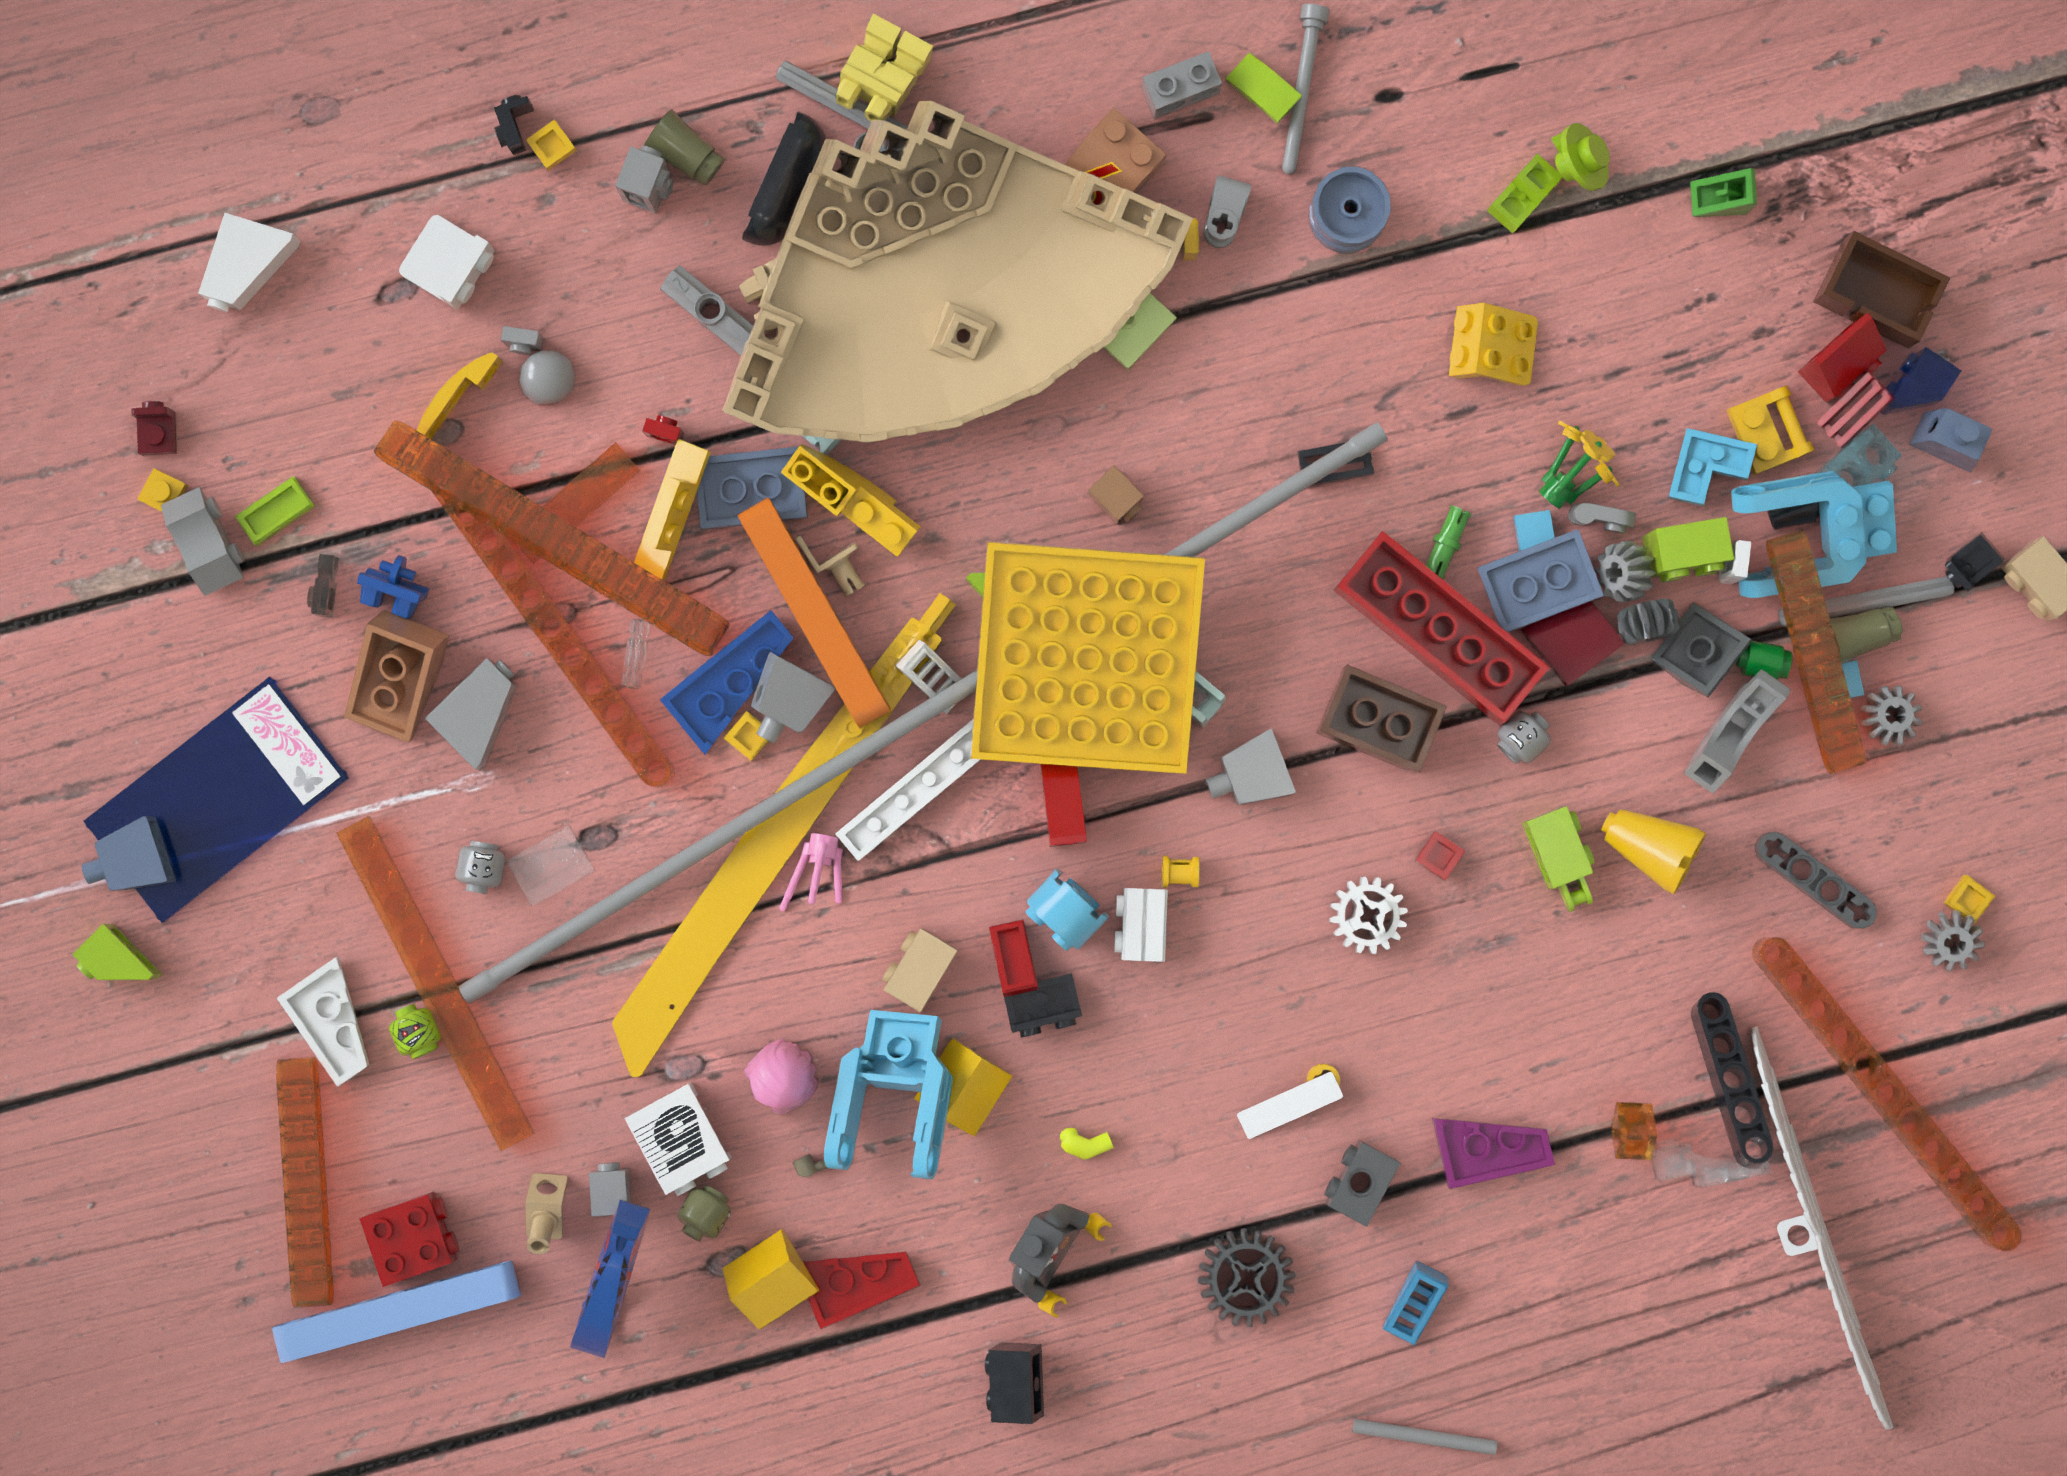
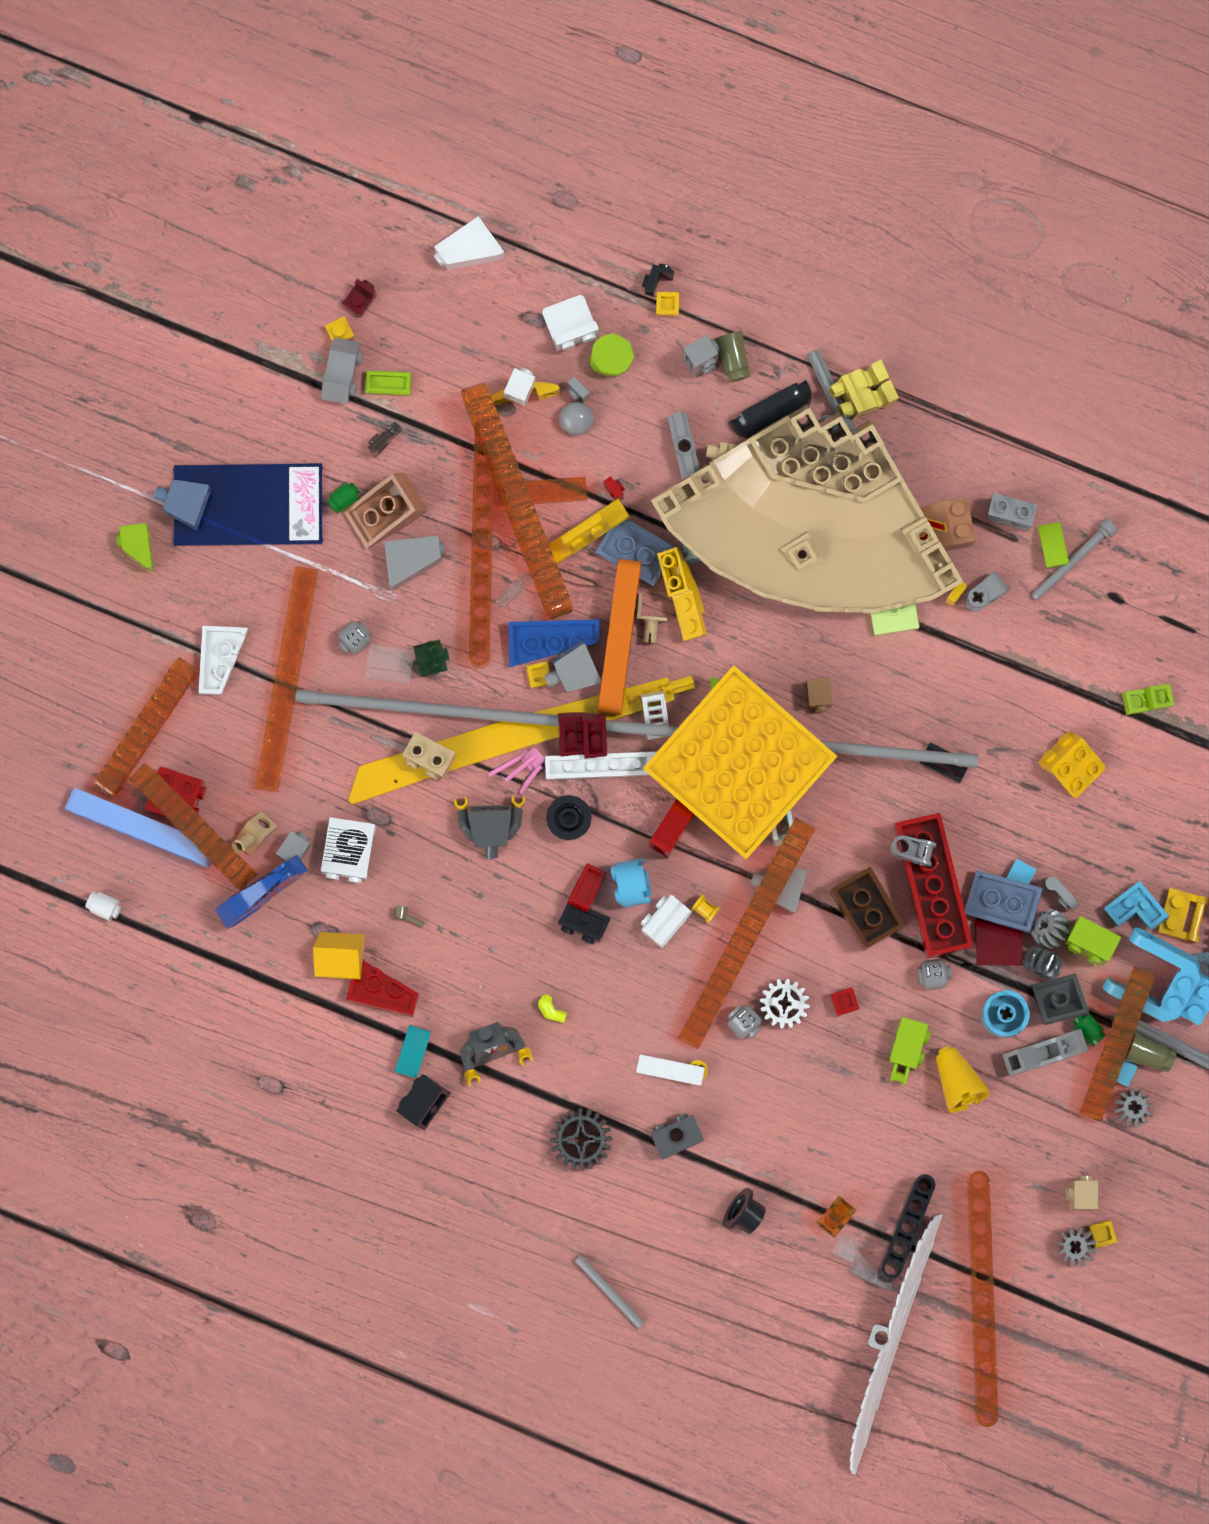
camera: 45 degrees right, 5 degrees down
(329, 699) = (343, 497): none -> green brick
(378, 583) = (422, 473): blue hips -> none
(414, 1031) = (257, 695): lime head -> none
(425, 1446) = (103, 905): none -> white brick
(444, 390) = (520, 386): none -> white brick
(460, 1265) = (192, 826): none -> clear orange beam
(530, 263) = (611, 355): none -> lime hat
(597, 819) = (431, 657): none -> clear green brick
(690, 945) = (429, 756): none -> tan brick
(704, 1213) = (332, 896): olive head -> none
(782, 1076) = (424, 857): bright pink hair -> none
(833, 972) = (490, 824): none -> dark grey torso
(862, 772) = (582, 734): none -> dark red slope
(896, 1056) = (489, 891): medium azure plate -> none
(919, 969) = (535, 857): tan brick -> none
(924, 889) = (568, 817): none -> black piece
(953, 1328) = (412, 1051): none -> teal slope
(974, 1087) = (511, 934): yellow slope -> none
(1257, 864) = (746, 933): none -> clear orange beam
(1336, 976) = (744, 1022): none -> light grey head
(1362, 193) = (1043, 651): sand blue wheel -> none
(1392, 603) = (914, 851): none -> light grey piece
(1411, 1284) = (672, 1205): dark azure slope -> none
(1447, 540) = (971, 845): bright green pin -> none
(1489, 1151) = (751, 1169): magenta wing -> none
(1517, 1214) = (744, 1212): none -> black piece
(1559, 487) = (1051, 860): green plant -> none
(1582, 157) = (1190, 702): lime piece -> none
(1641, 739) = (993, 1020): none -> medium azure brick
(1738, 568) = (1108, 968): white tile -> none
(1794, 515) = (1161, 967): black cone -> none
(1818, 876) = (1033, 1162): dark grey beam -> none
(1914, 871) = (1082, 1194): none -> tan brick

